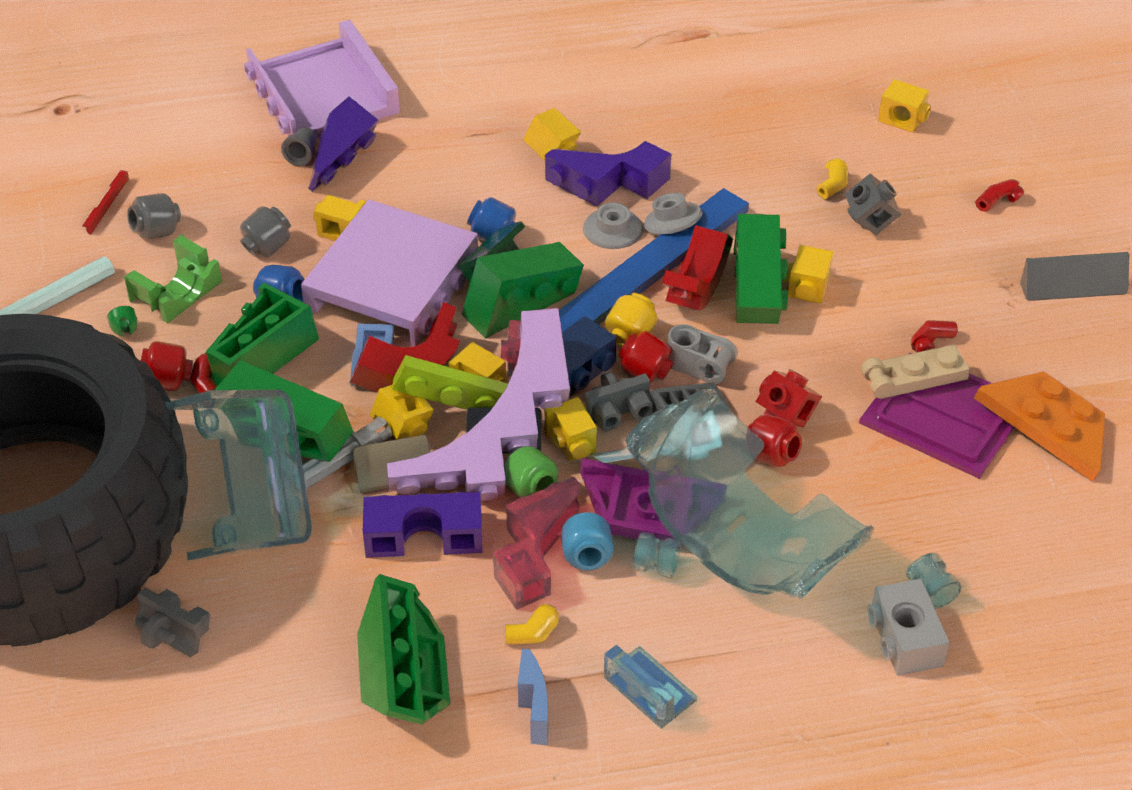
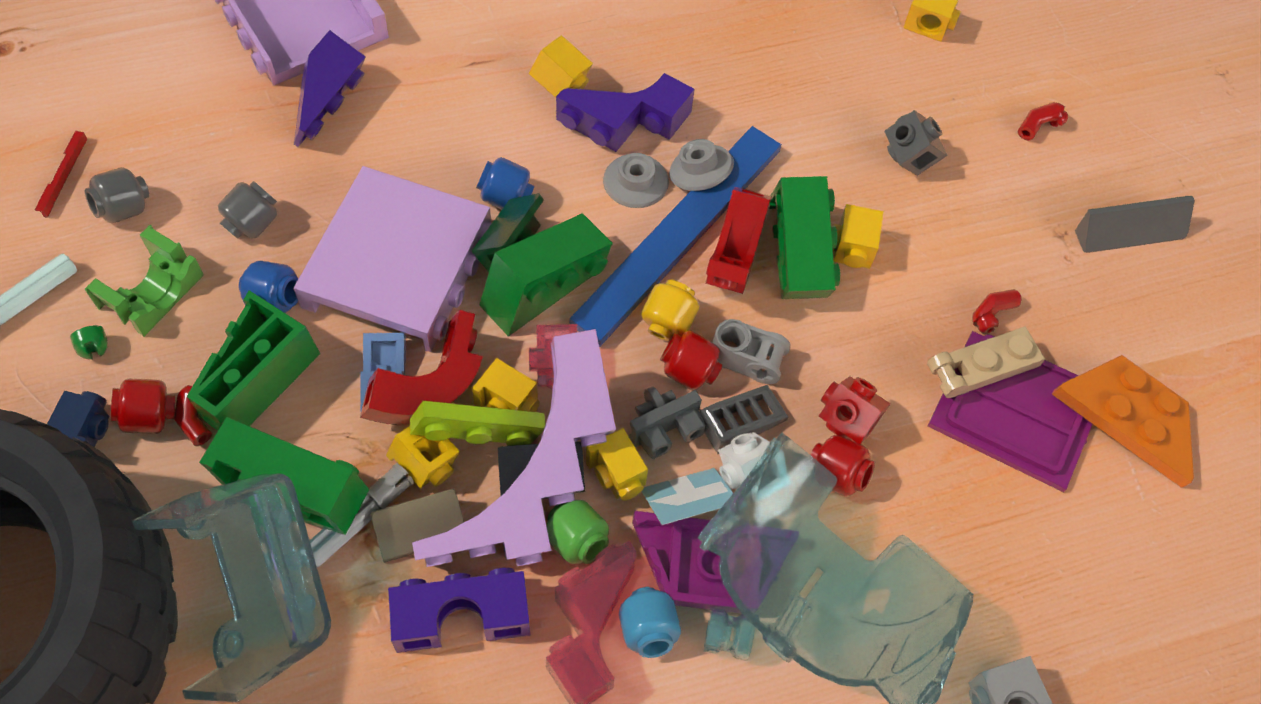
camera: 10 degrees left, 15 degrees up
(300, 146) = (280, 91): dark grey piece -> none
(334, 216) = (327, 186): yellow brick -> none
(588, 352) = (626, 356): dark blue slope -> none
(837, 178) = (872, 106): yellow arm -> none
(940, 585) = (1035, 641): clear light blue wheel -> none

